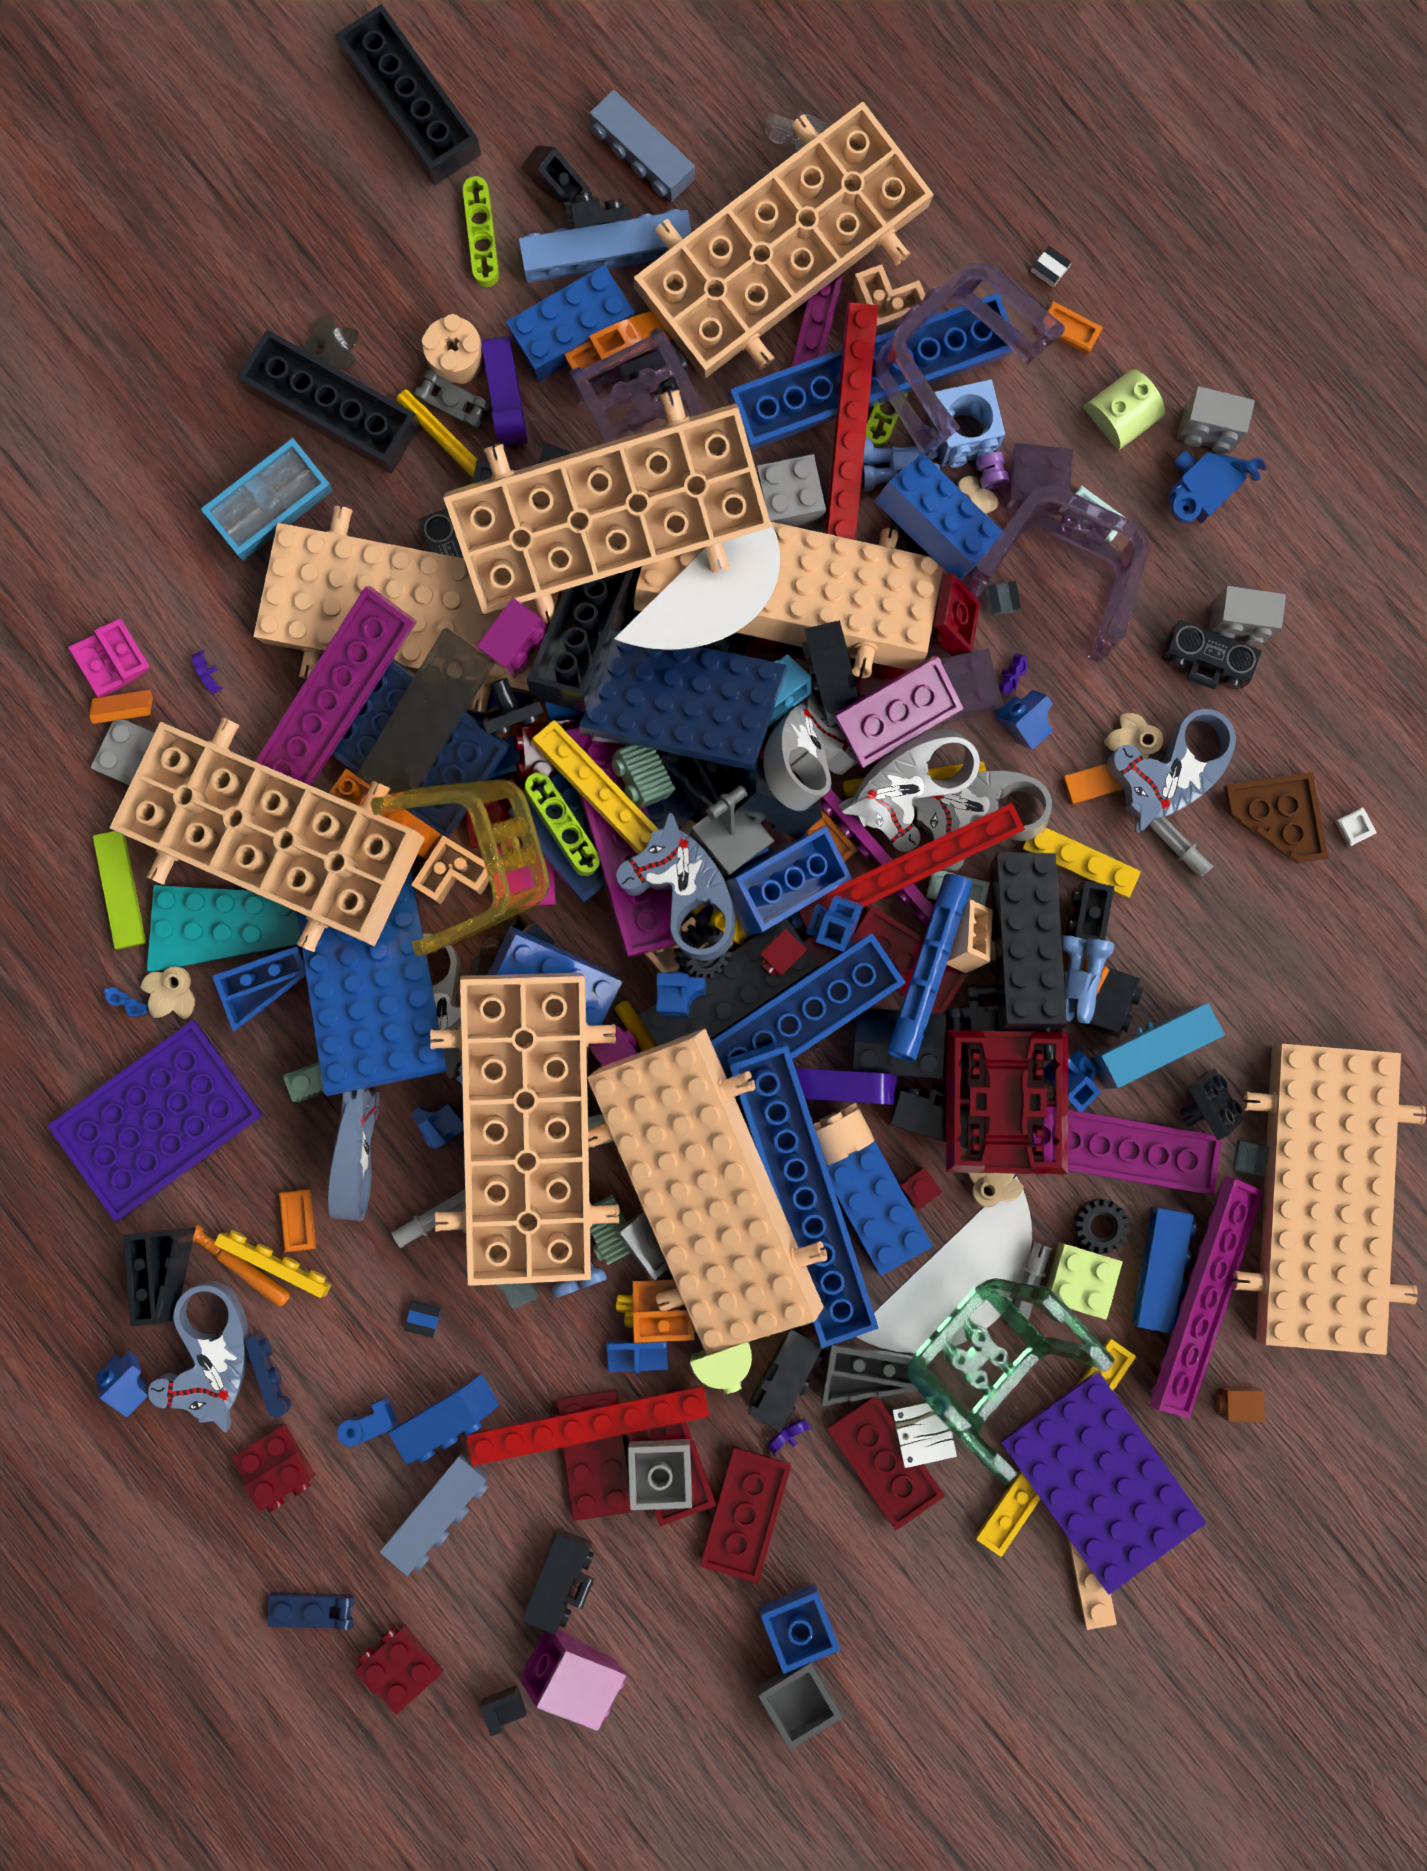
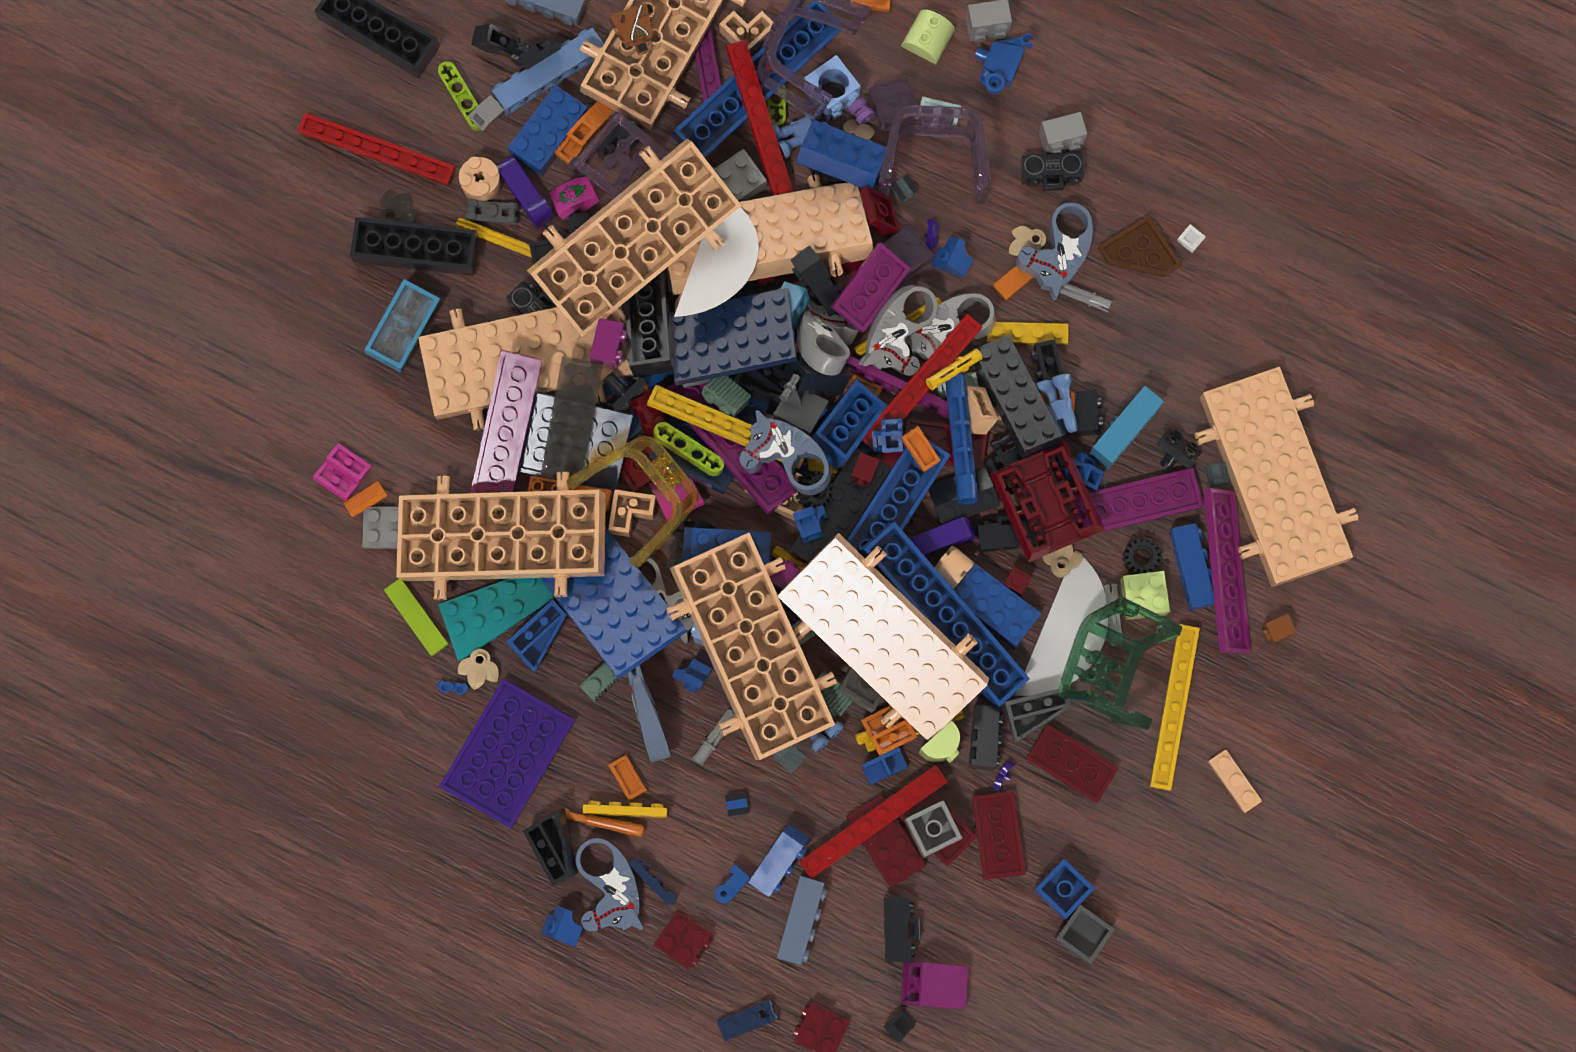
camera: 25 degrees left, 5 degrees down
(204, 672) = (410, 454): dark purple piece -> none
(339, 254) = (376, 149): none -> red plate
(499, 265) = (486, 113): none -> light grey brick
(563, 422) = (574, 195): none -> dark pink slope
(736, 227) = (633, 27): none -> dark orange torso
(868, 959) = (920, 449): none -> orange tile
(922, 1436) = (1088, 735): white sticker -> none
(992, 864) = (972, 357): none -> yellow pin
(1103, 1482) = (1213, 714): dark purple plate -> none

